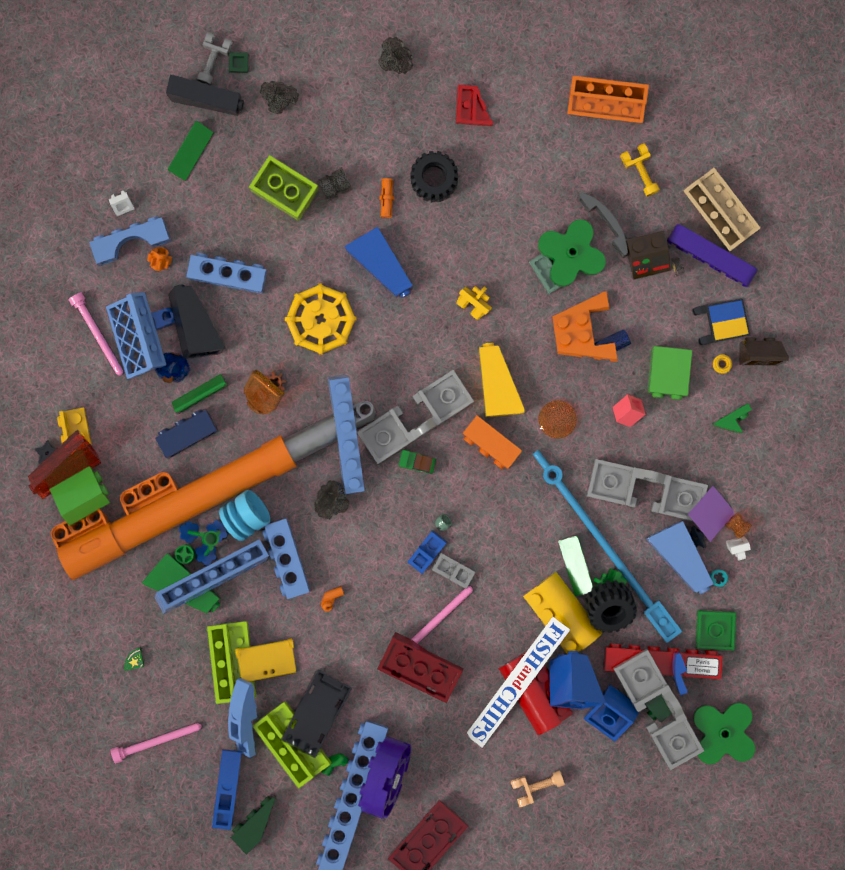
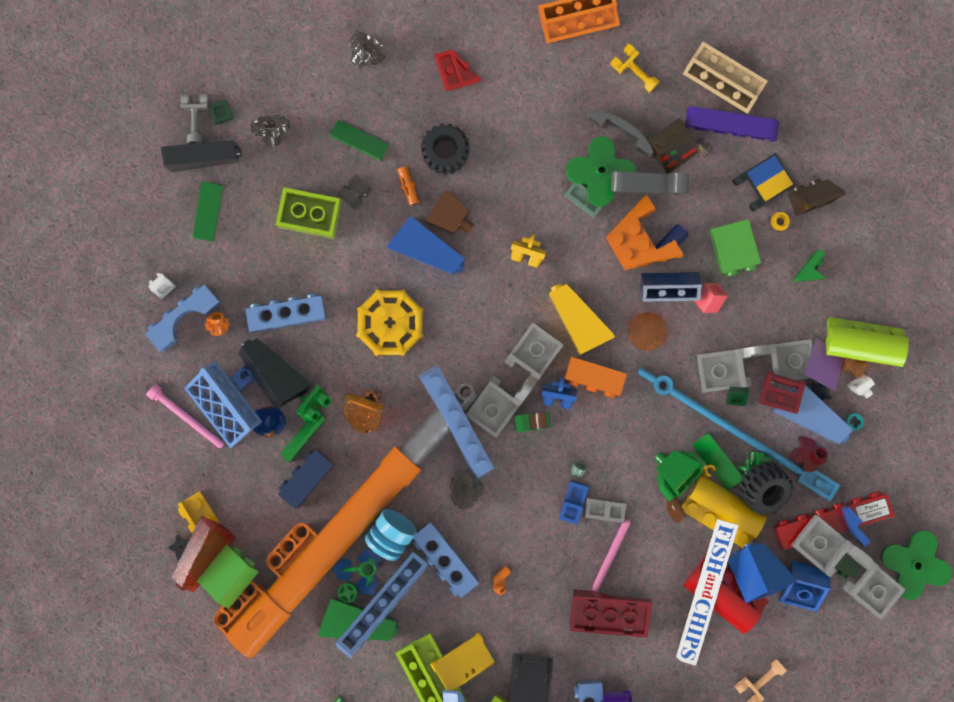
camera: 25 degrees left, 0 degrees up
(219, 366) = (312, 403): none -> green hips
(357, 138) = (359, 140): none -> green slope
(414, 240) = (450, 215): none -> reddish brown torso
(454, 443) = (559, 390): none -> blue hips
(532, 562) = (676, 475): none -> green torso
(595, 385) = (670, 286): none -> dark blue brick
(612, 281) = (650, 183): none -> dark grey beam
(618, 511) = (737, 396): none -> dark green tile
(656, 528) = (781, 398): none -> dark red plate
(662, 590) = (807, 454): none -> dark red plate
(715, 630) = (870, 471): green tile -> none
(758, 507) = (866, 342): none -> lime brick

